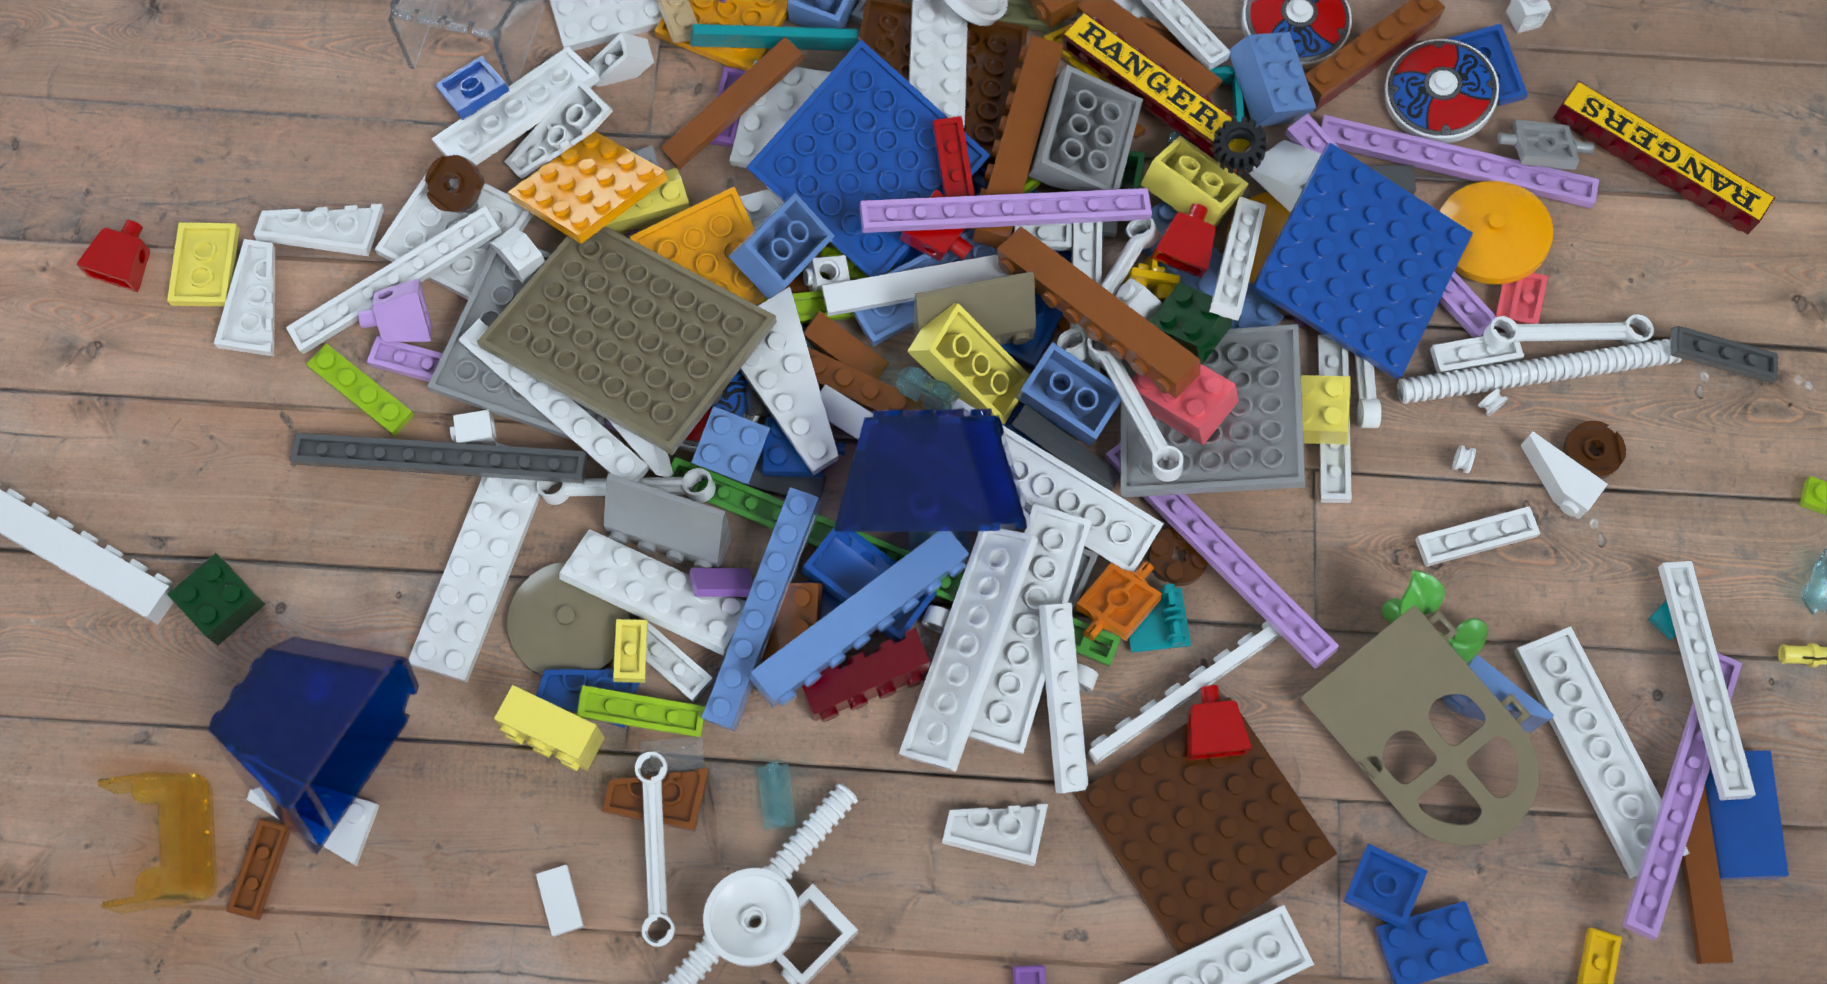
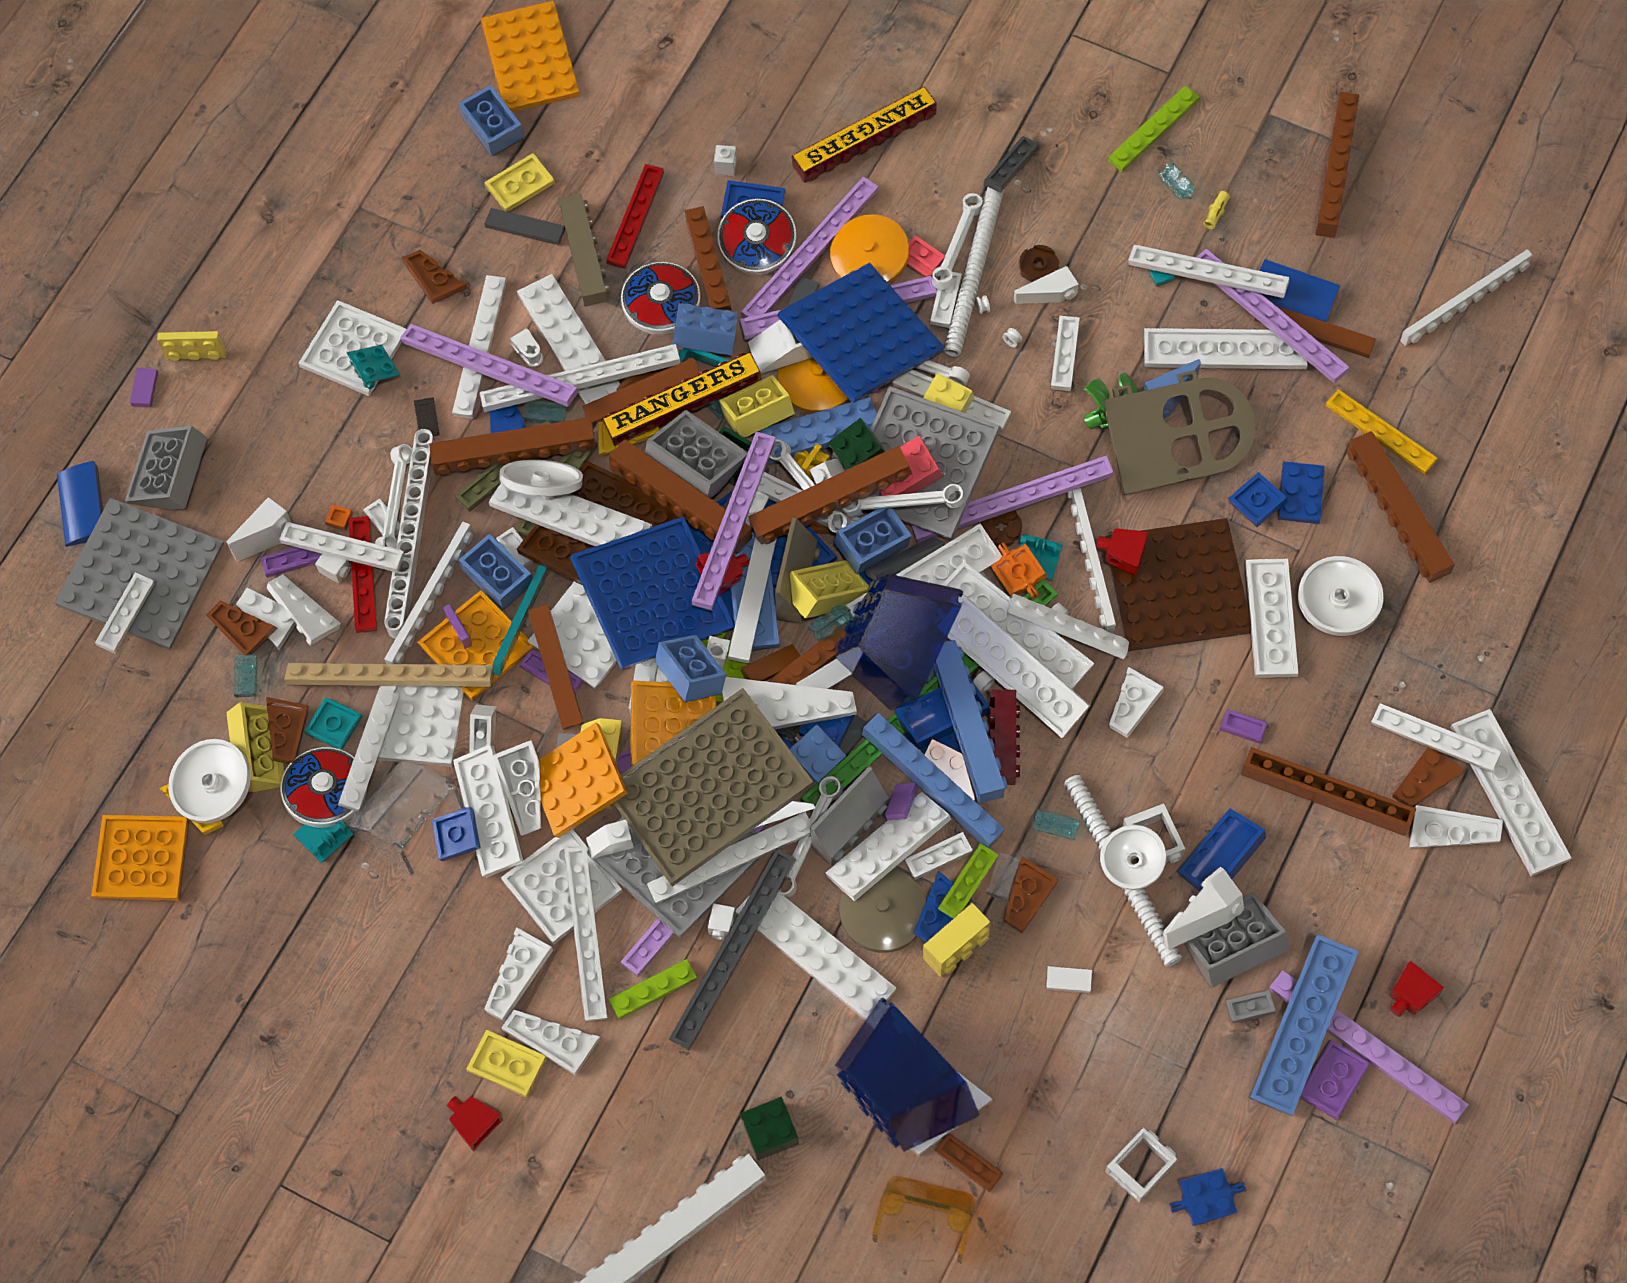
camera: 60 degrees left, 5 degrees down
(399, 313) = (614, 936): lavender torso -> none
(469, 183) = (544, 871): reddish brown plate -> none
(630, 651) = (925, 871): light yellow plate -> none
(654, 849) = (1061, 905): white piece -> none
(953, 157) = (680, 538): red plate -> none
(1187, 242) = (799, 427): red torso -> none
(1238, 259) = (829, 400): white plate -> none
(1244, 131) = (751, 353): black tyre -> none
(1545, 144) = (825, 194): light grey plate -> none

